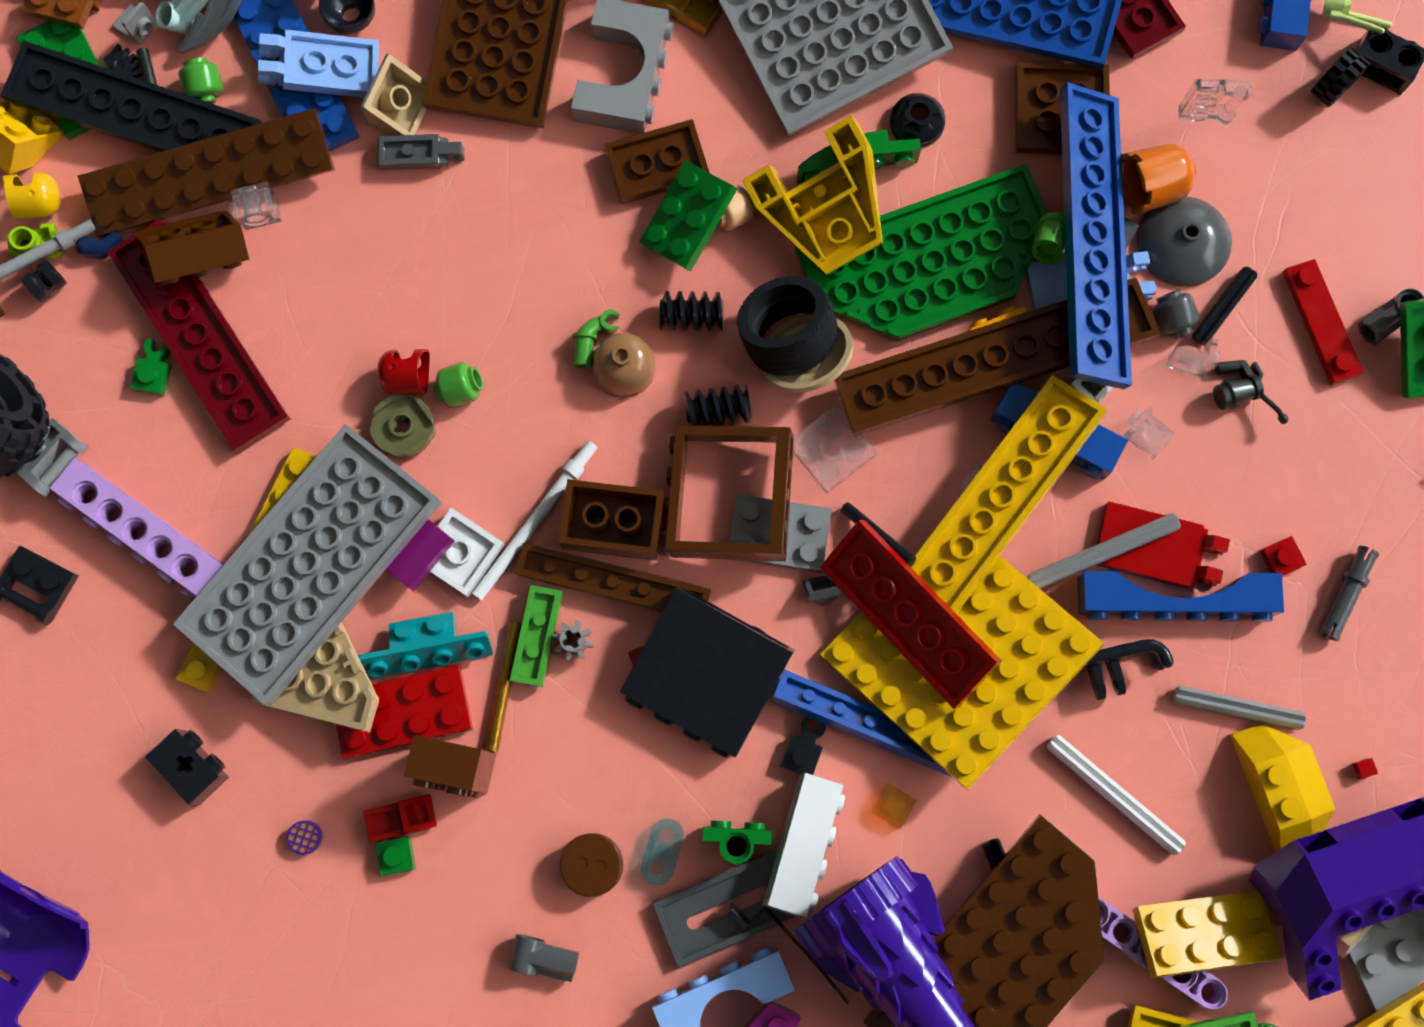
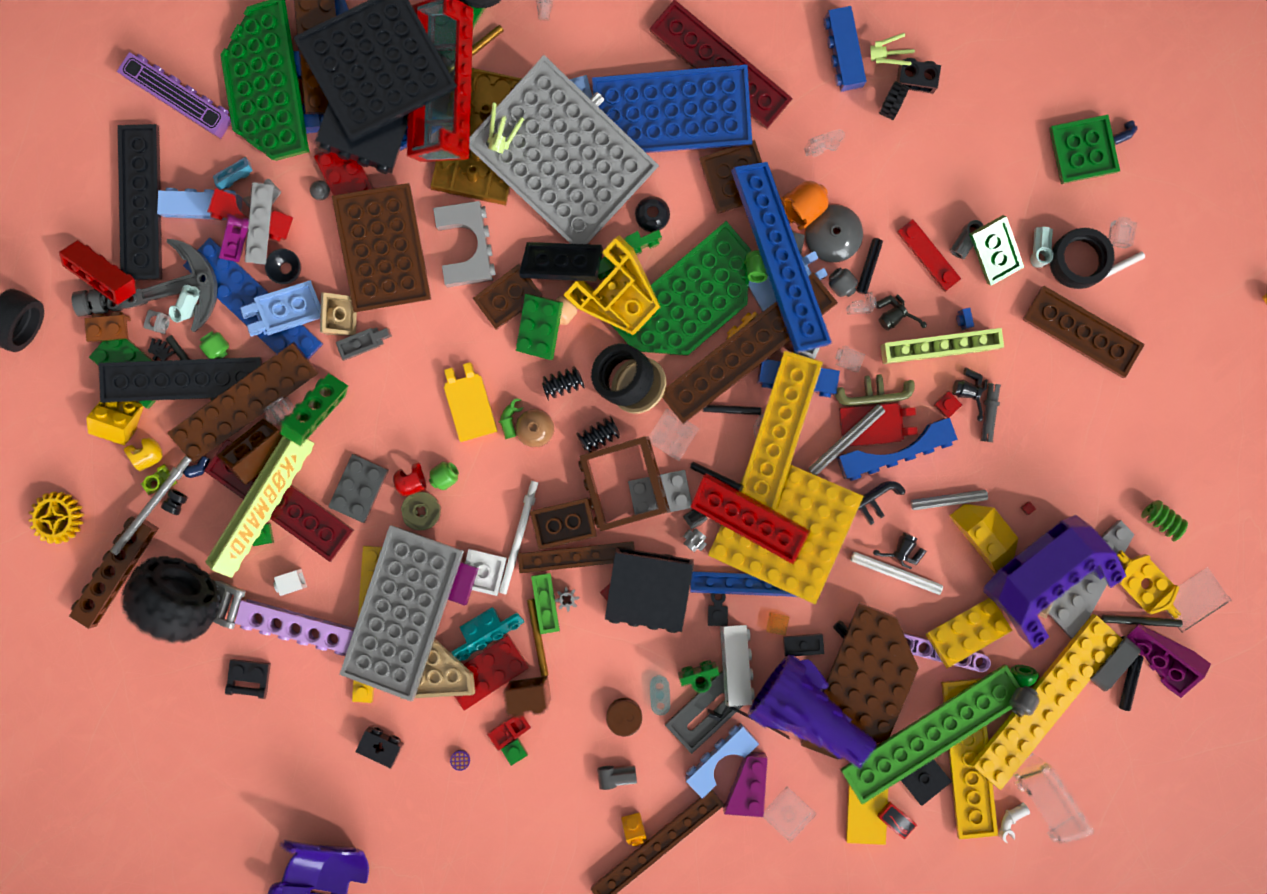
camera: 25 degrees left, 10 degrees up
(160, 460) = (289, 582): none -> white brick
(164, 322) = (258, 506): none -> yellowish green brick
(303, 212) = (323, 399): none -> green brick
(323, 360) = (358, 488): none -> dark grey plate
(538, 296) = (469, 404): none -> yellow tile
(756, 134) = (561, 261): none -> black plate
(808, 621) = (694, 540): none -> light grey gear
(925, 855) = (803, 645): none -> black plate
(937, 444) = (733, 409): none -> black bar
(1144, 754) = (905, 546): none -> black piece
(1164, 503) = (908, 390): none -> olive piece
(1303, 460) = (942, 346): none -> yellowish green brick
(1319, 542) = (964, 389): none -> black piece
(1352, 434) = (965, 319): none -> blue plate

